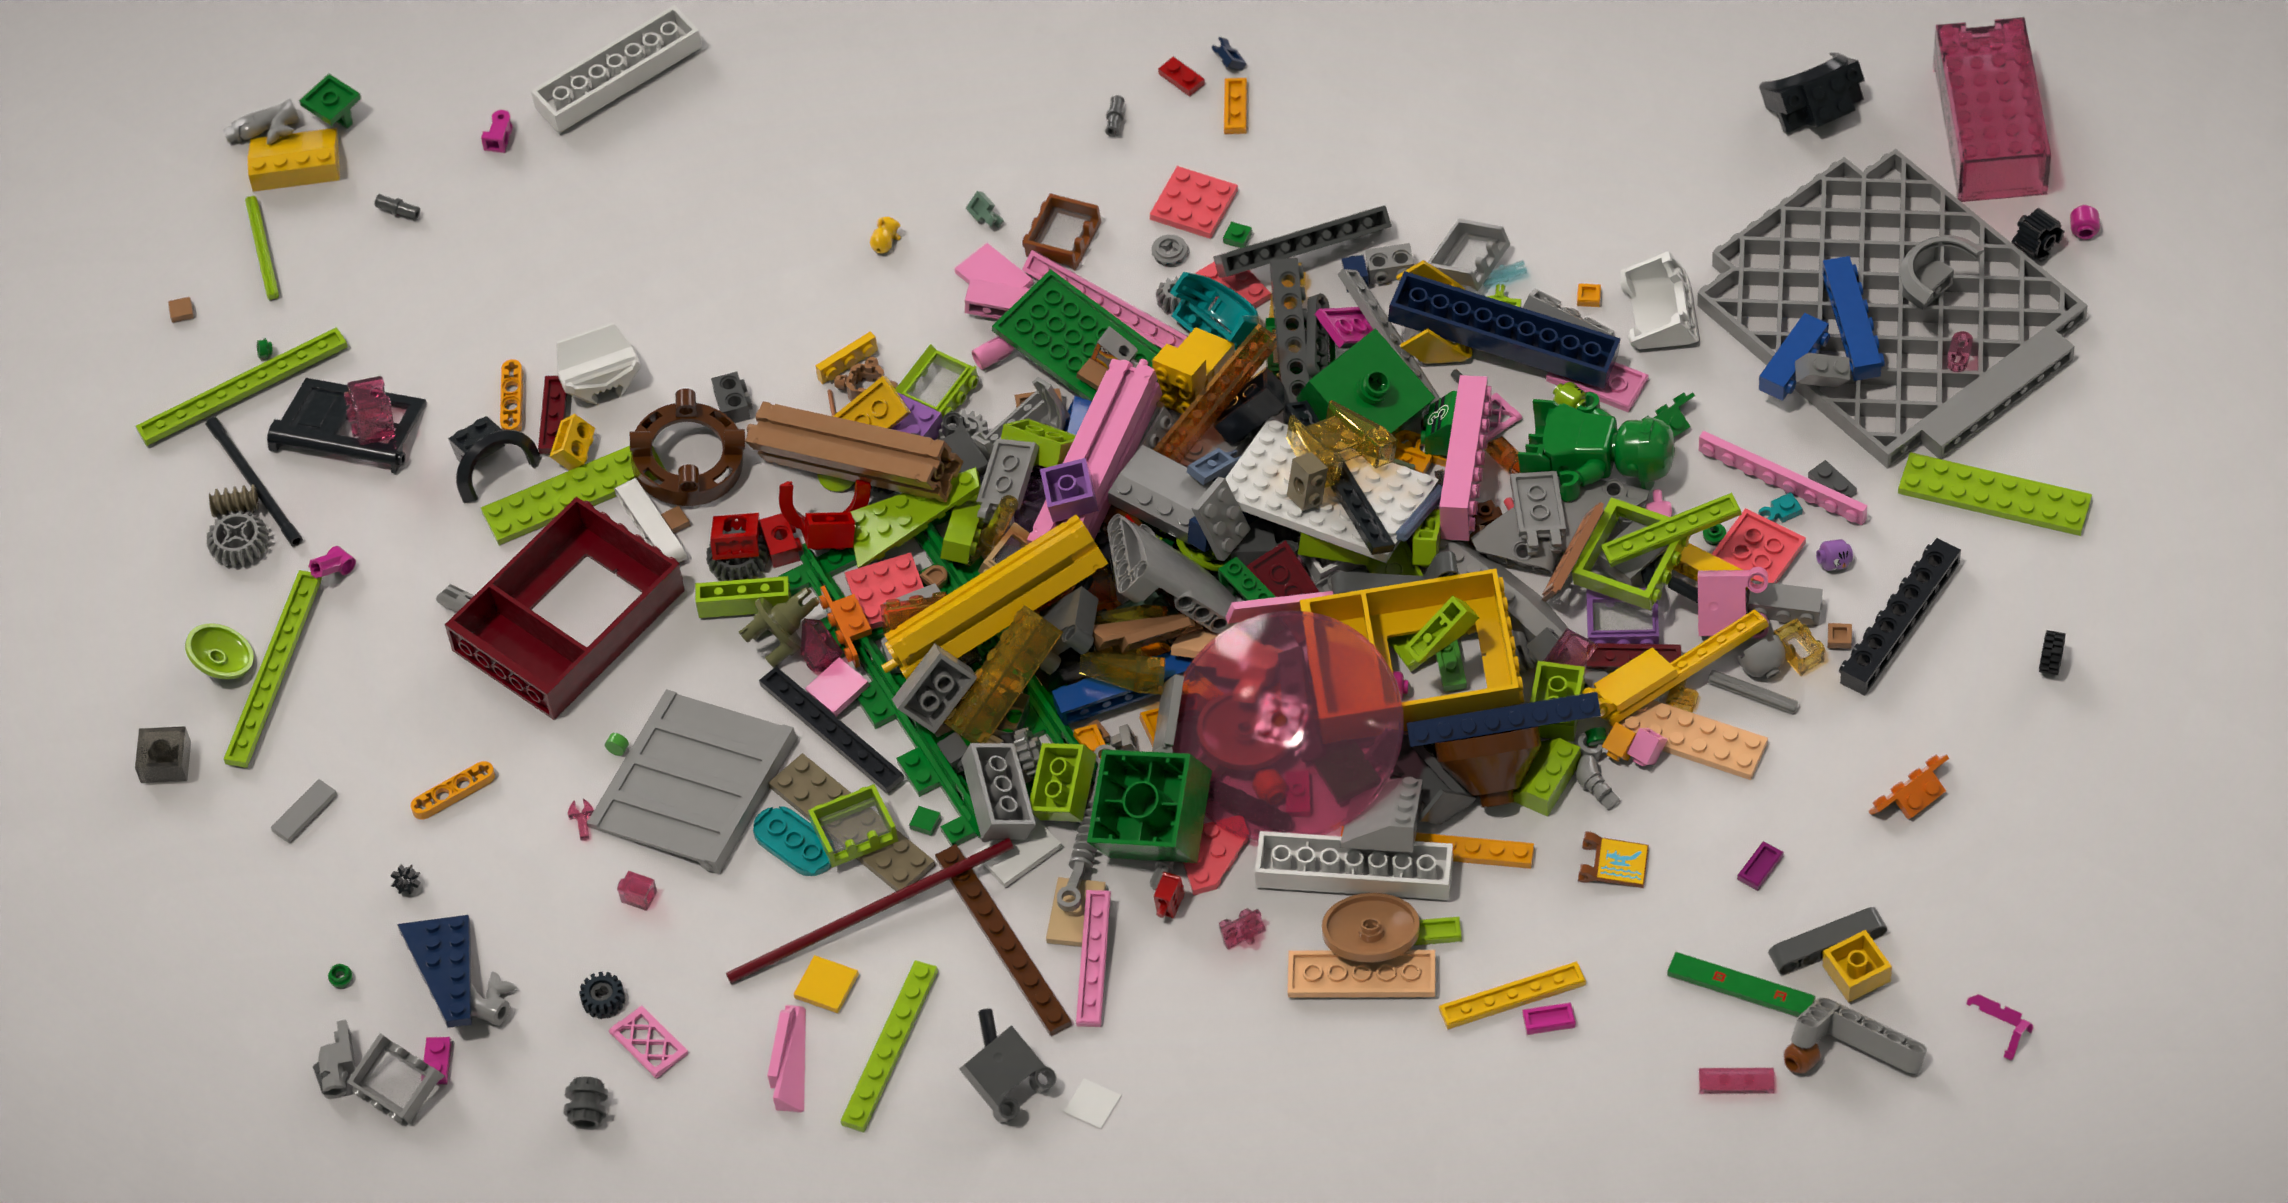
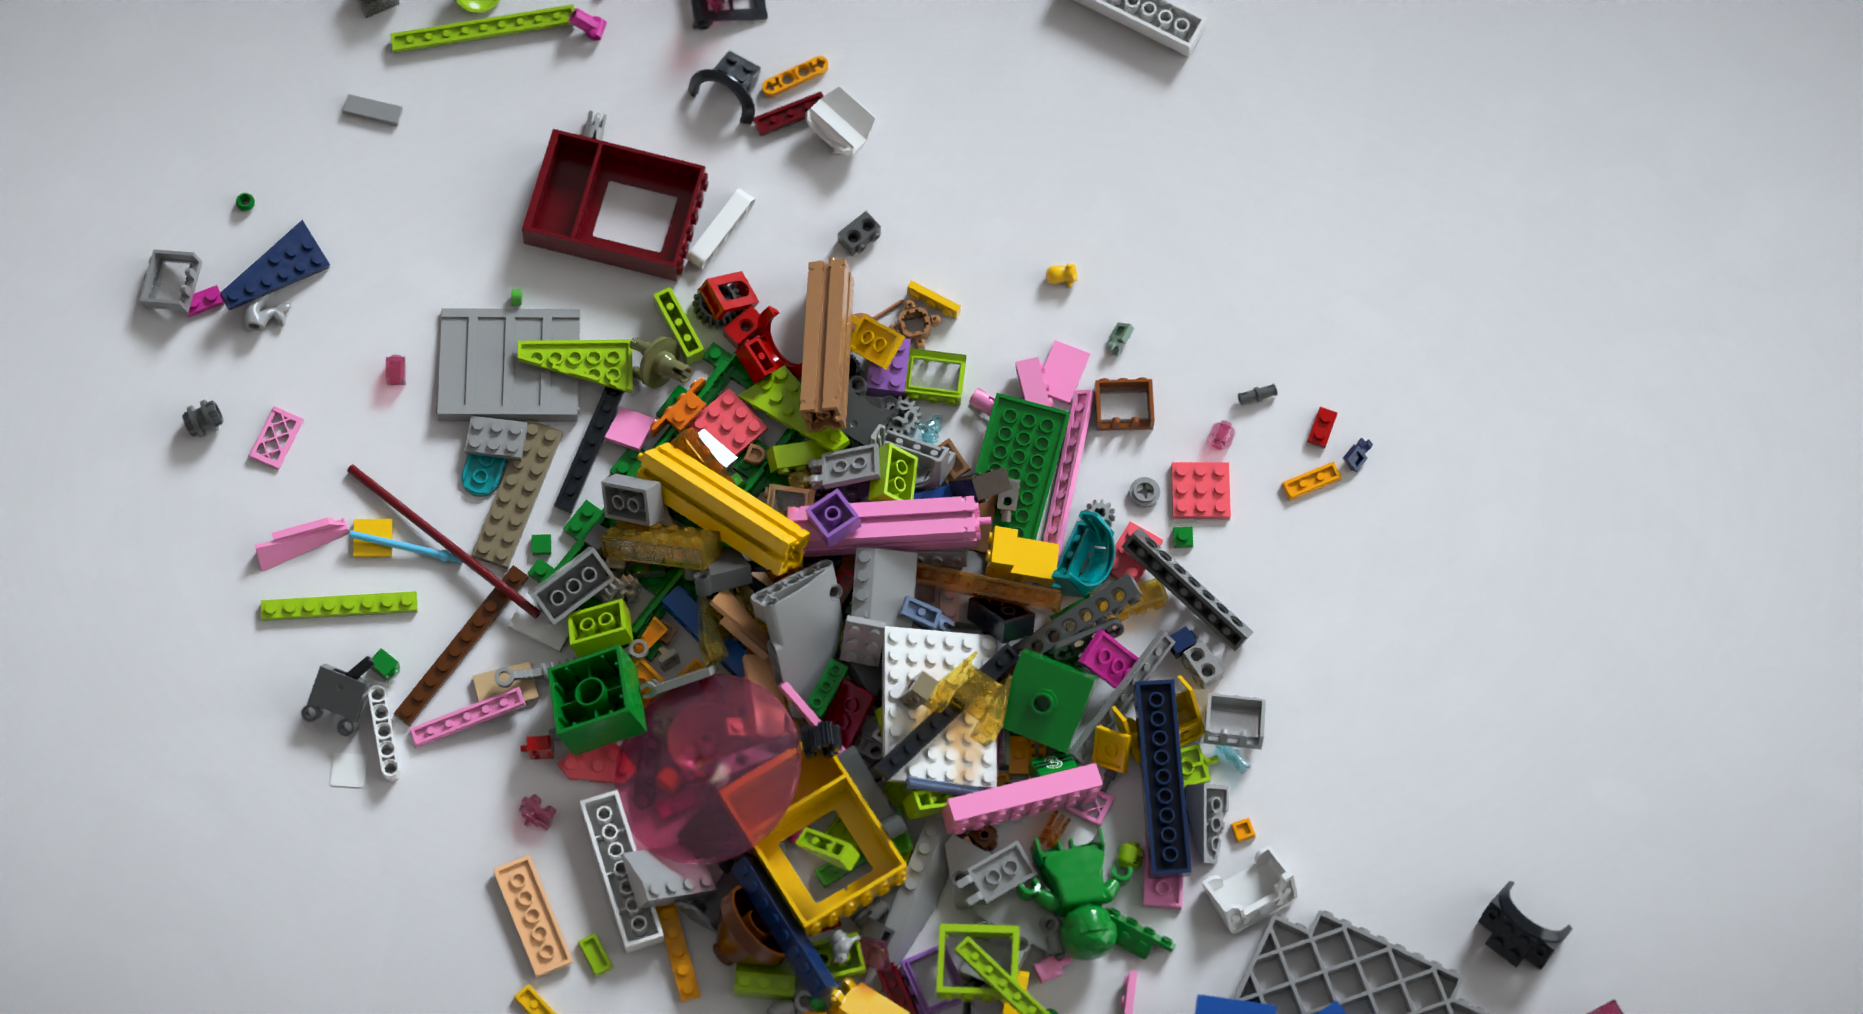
camera: 55 degrees right, 15 degrees up
(336, 1063) = (172, 234): light grey plate -> none
(406, 873) = (339, 207): black gear -> none
(450, 787) = (432, 202): light orange beam -> none
(542, 502) = (729, 161): lime plate -> none
(572, 442) = (766, 135): yellow brick -> none
(581, 818) = (445, 302): clear pink bar -> none
(606, 1004) = (296, 396): black bush -> none
(676, 519) = (733, 244): medium nougat tile -> none
(688, 486) = (759, 241): reddish brown piece -> none
(736, 691) = (594, 361): none -> lime wing
(775, 816) = (496, 438): none -> light grey plate
(818, 645) = (658, 398): clear pink slope -> none
(853, 825) = (506, 495): window -> none
(884, 920) = (444, 555): none -> medium azure bar
(993, 410) = (930, 429): none -> clear light blue animal
(998, 1013) = (385, 665): none -> green brick
(1082, 1044) = (380, 725): none -> white beam
(1093, 366) = (981, 485): none -> dark brown wedge
(1143, 161) = (1221, 435): none -> clear pink head
(1316, 590) = (821, 739): none -> black brick
(1370, 927) = (571, 906): medium nougat dish -> none
(1444, 366) = (1111, 749): none -> yellow plate
(1549, 675) = (841, 945): none -> light grey animal
(1573, 552) = (964, 917): nougat piece -> none

